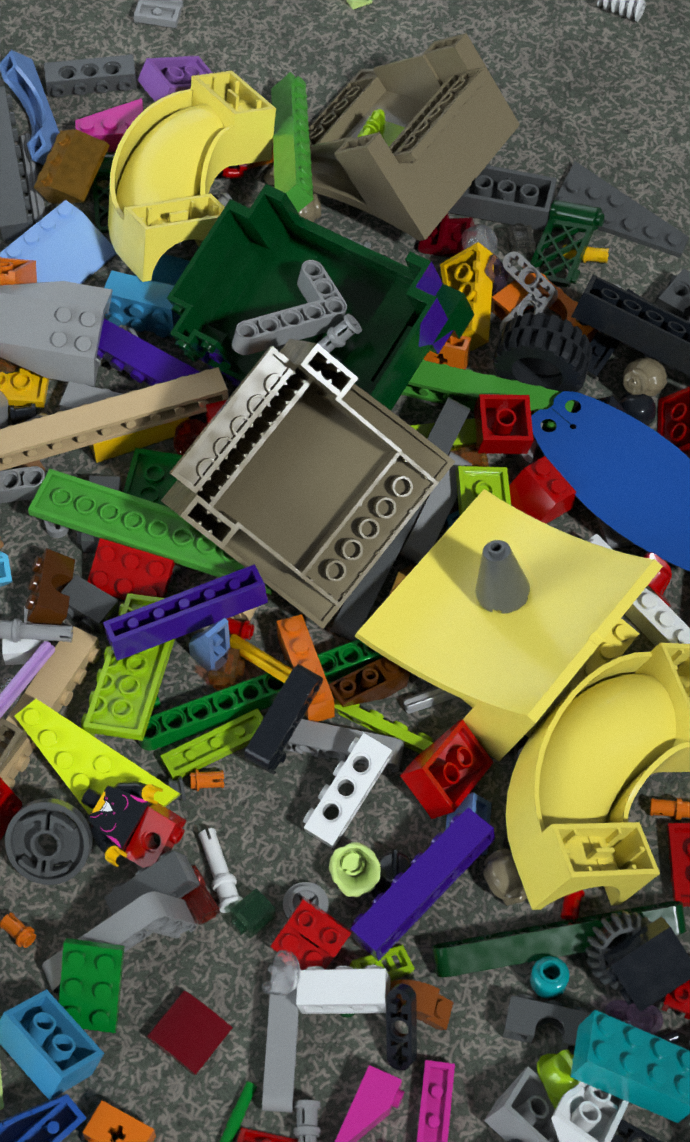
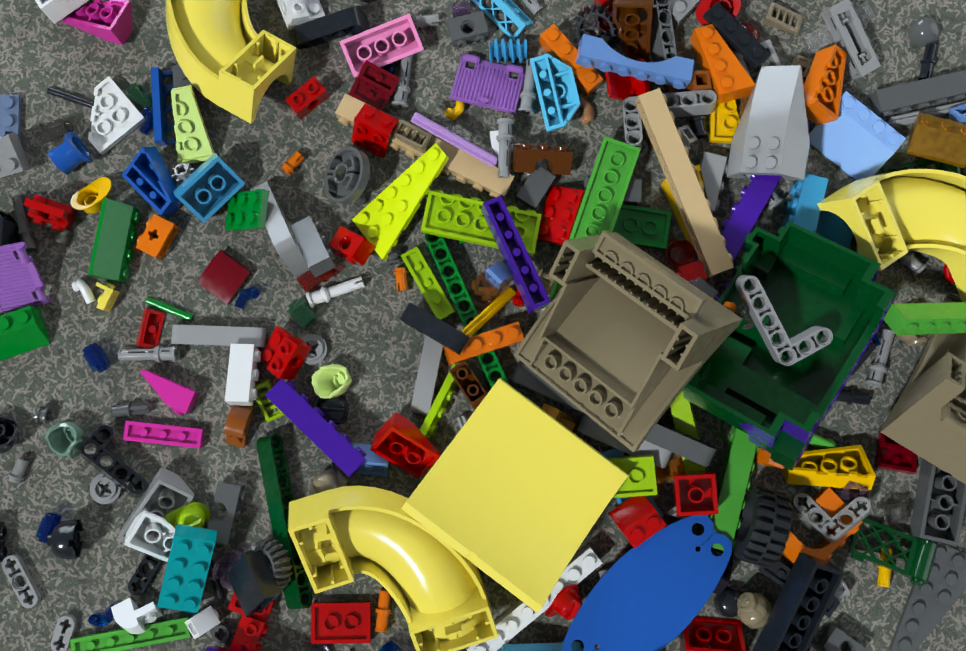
camera: 90 degrees right, 25 degrees up
(27, 1096) = (182, 172): none -> light grey gear
(117, 815) = (361, 219): black torso -> none
(218, 998) = (246, 295): none -> clear blue arm
(284, 974) = (247, 335): clear hair -> none
(332, 830) = (361, 363): white brick -> none
(336, 336) = (757, 357): light grey pin -> none
(393, 1037) = (218, 413): black beam -> none
(481, 234) = (890, 478): clear hair -> none
(501, 579) = (530, 487): dark grey cone -> none
(549, 977) = (258, 518): teal head -> none

